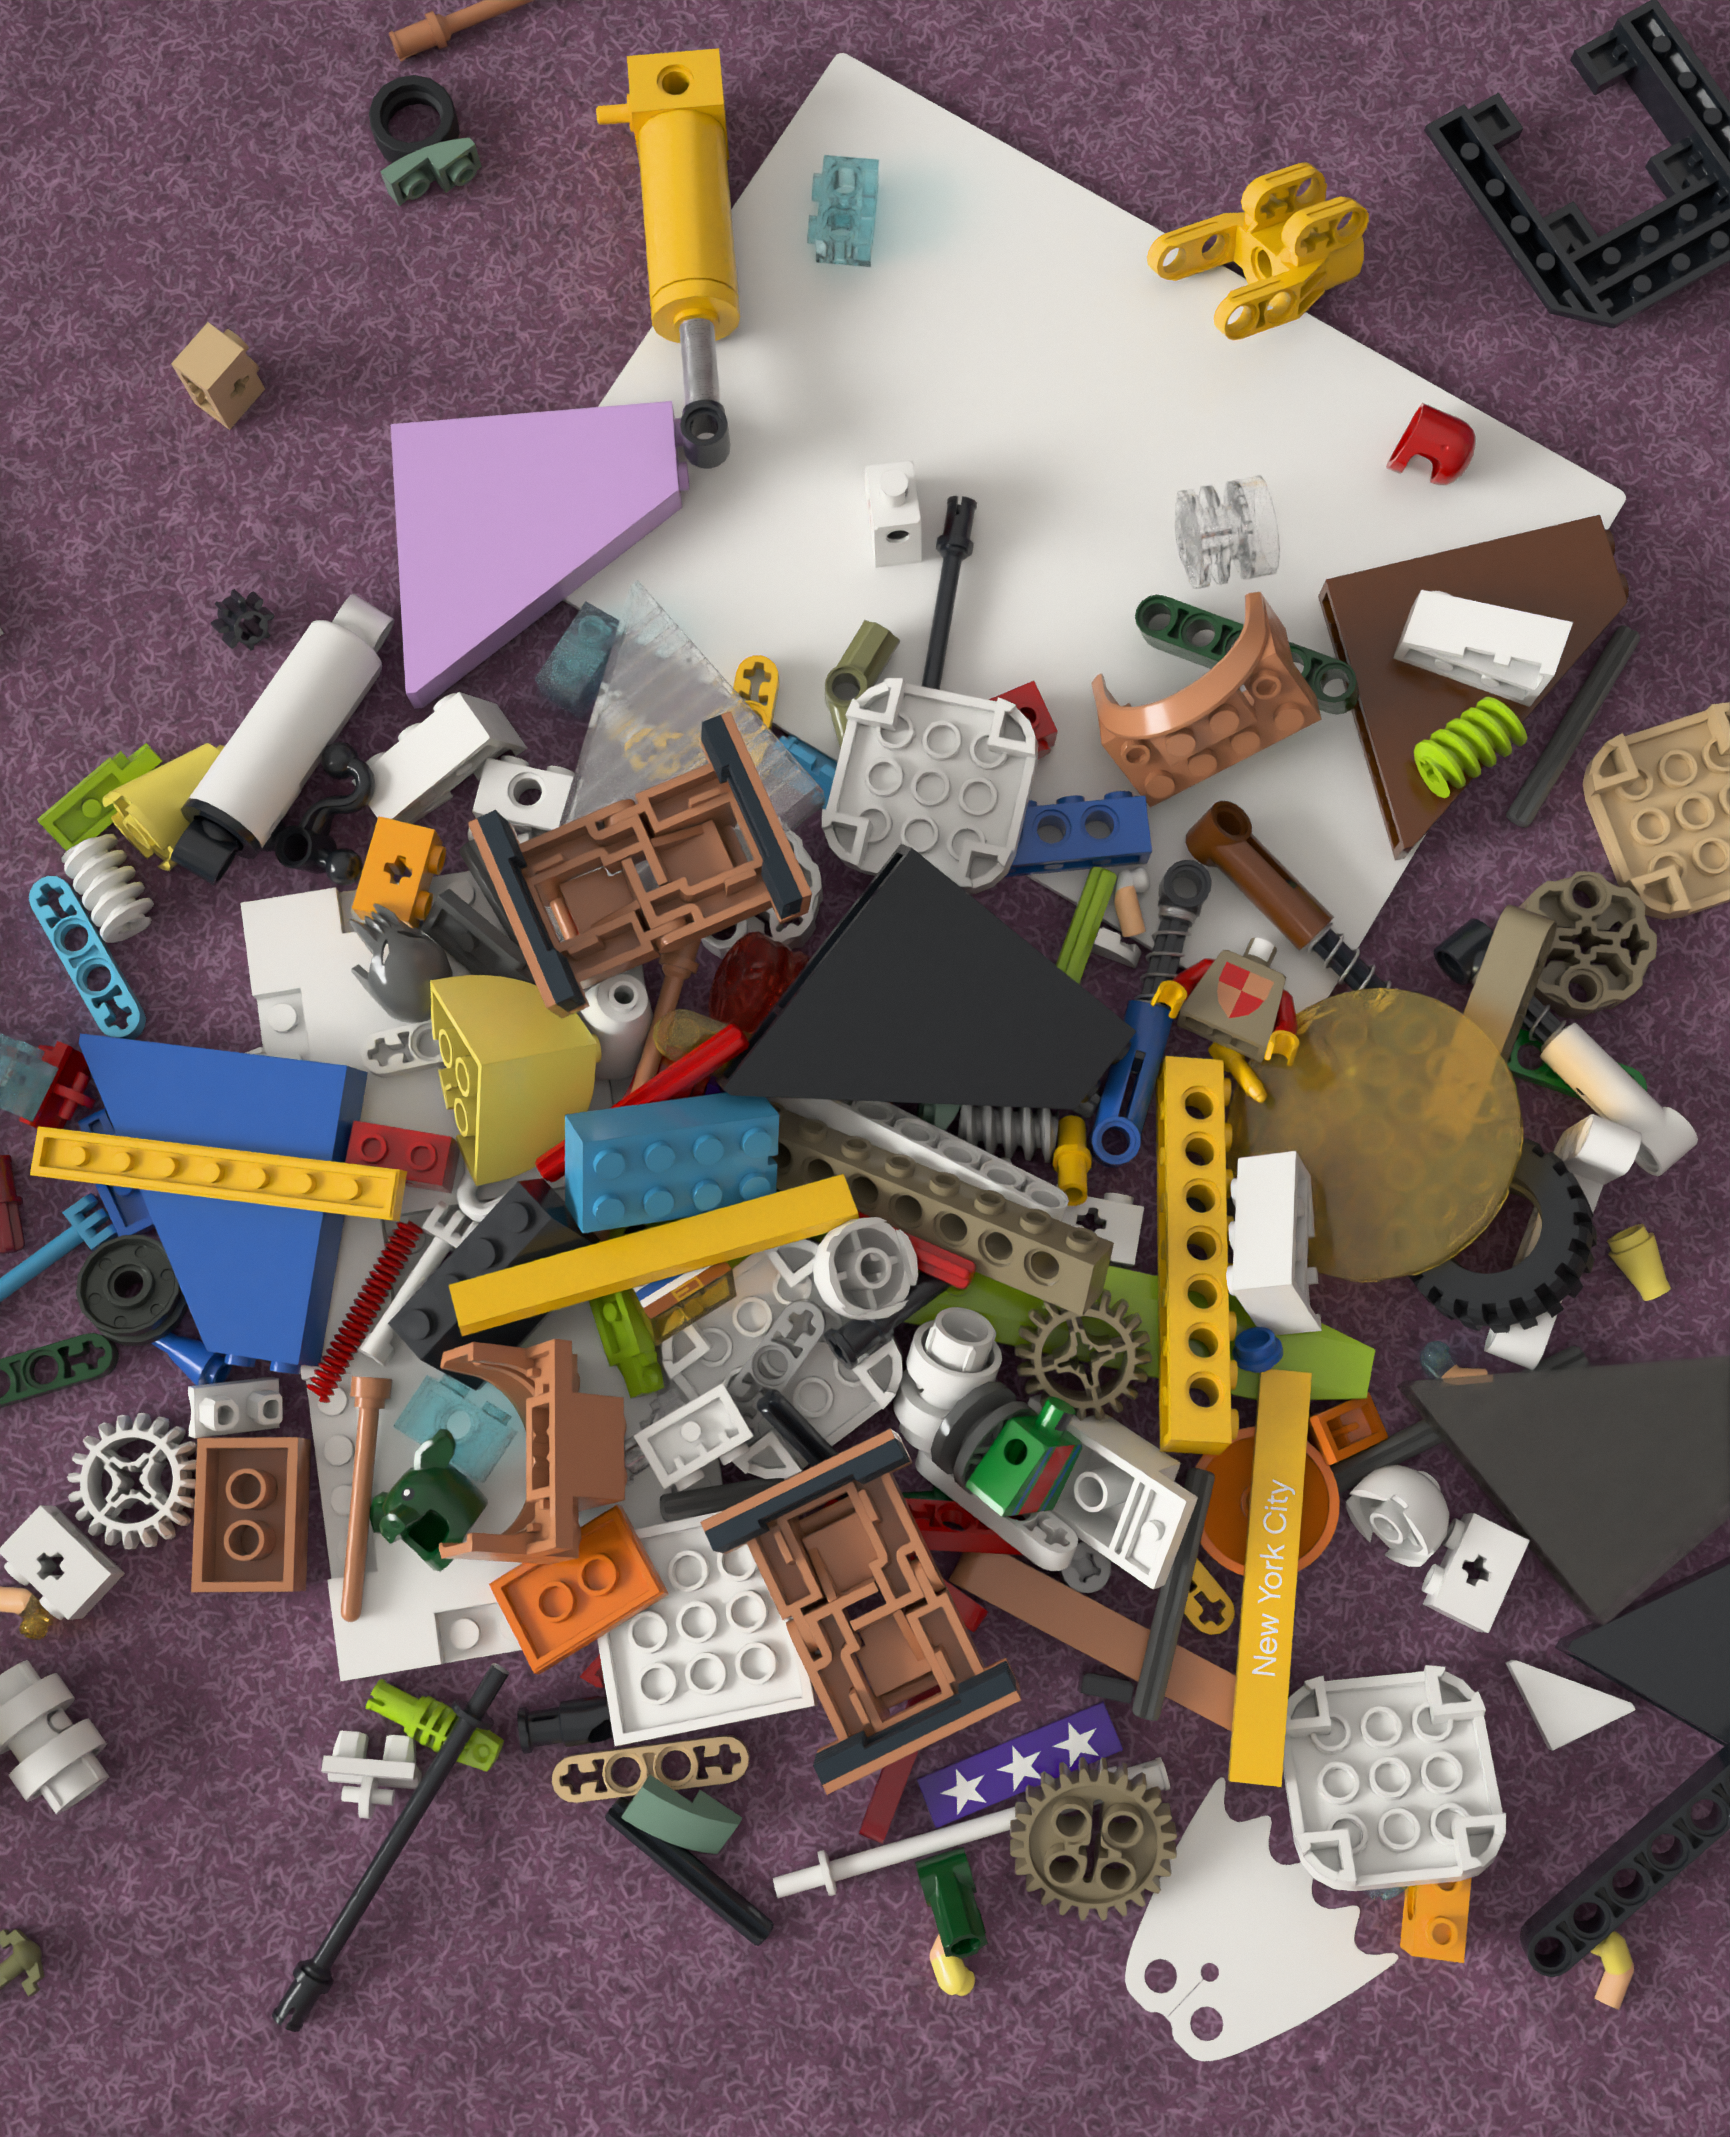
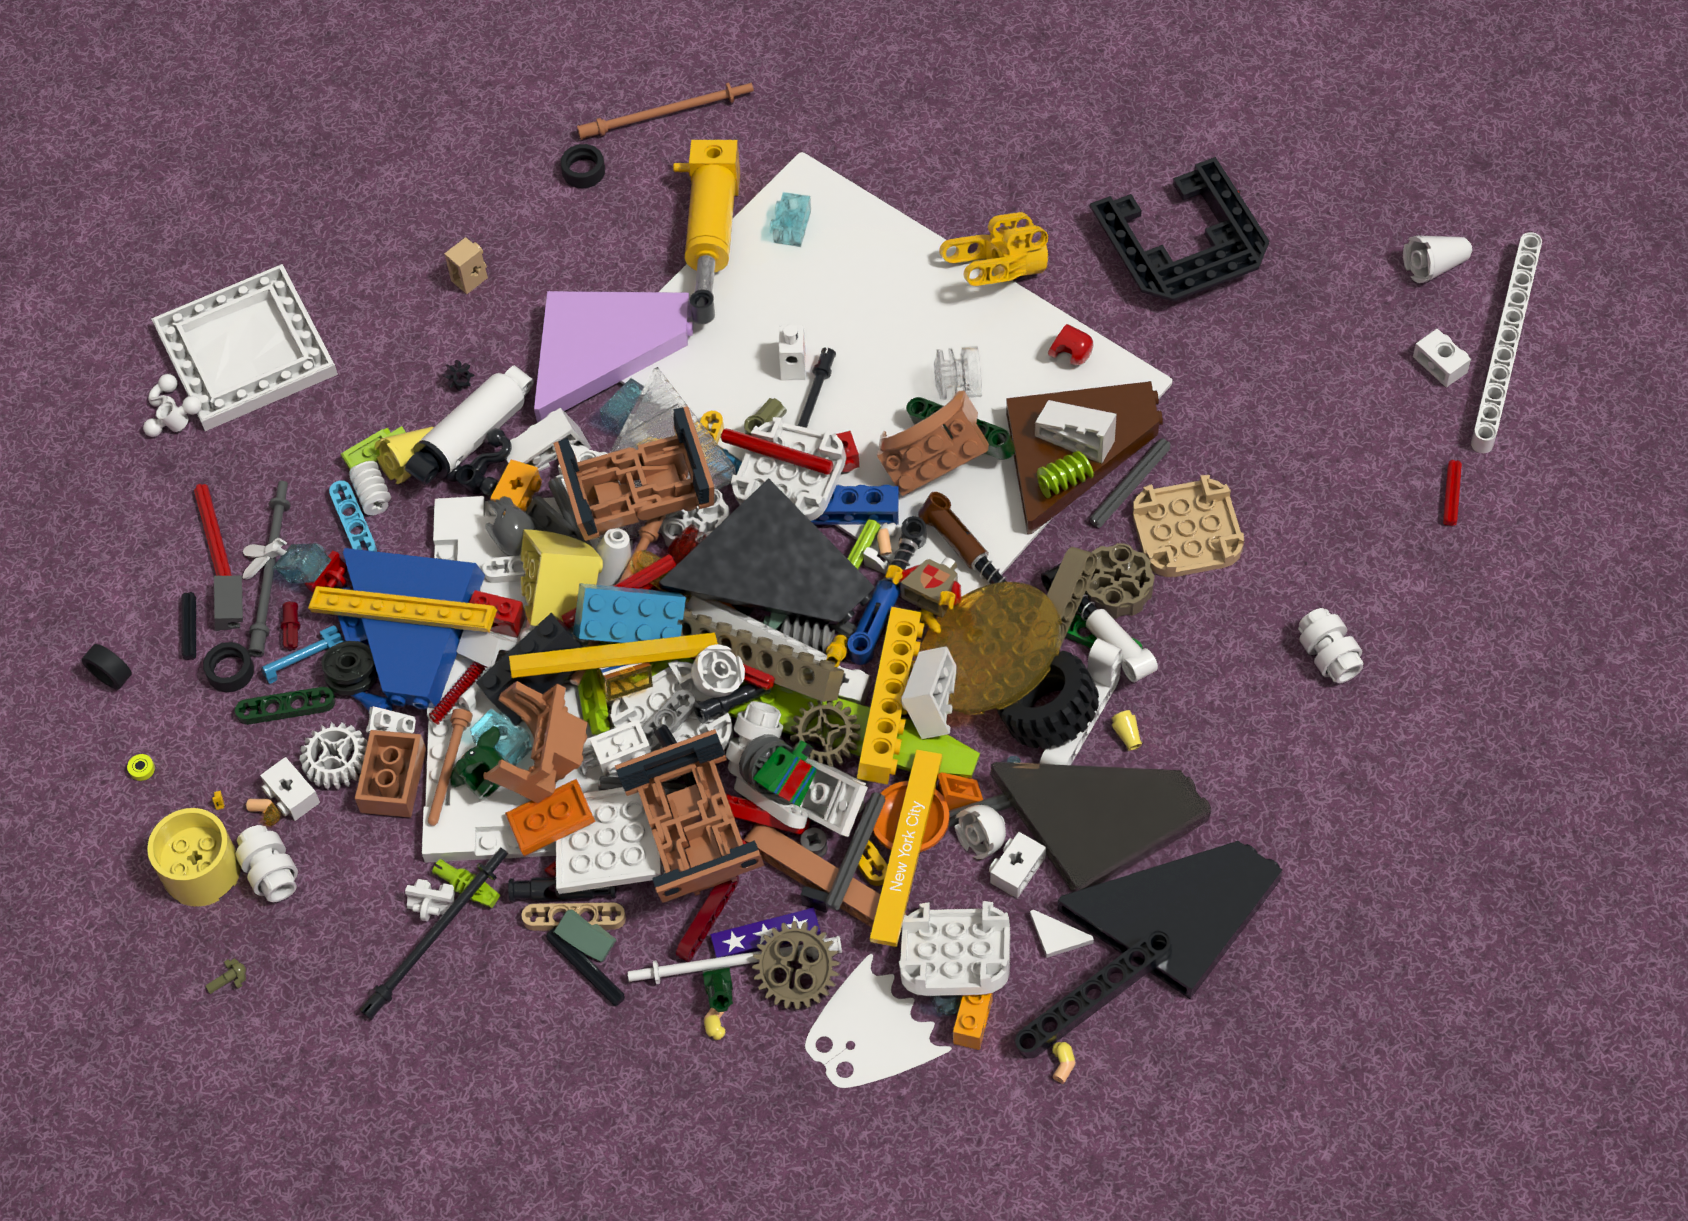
camera: 10 degrees right, 20 degrees down
(396, 1245) = (483, 646): none -> white panel
(446, 162) = (594, 184): sand green slope -> none
(903, 751) = (777, 451): none -> red axle
(1257, 1350) = (915, 740): blue plate -> none

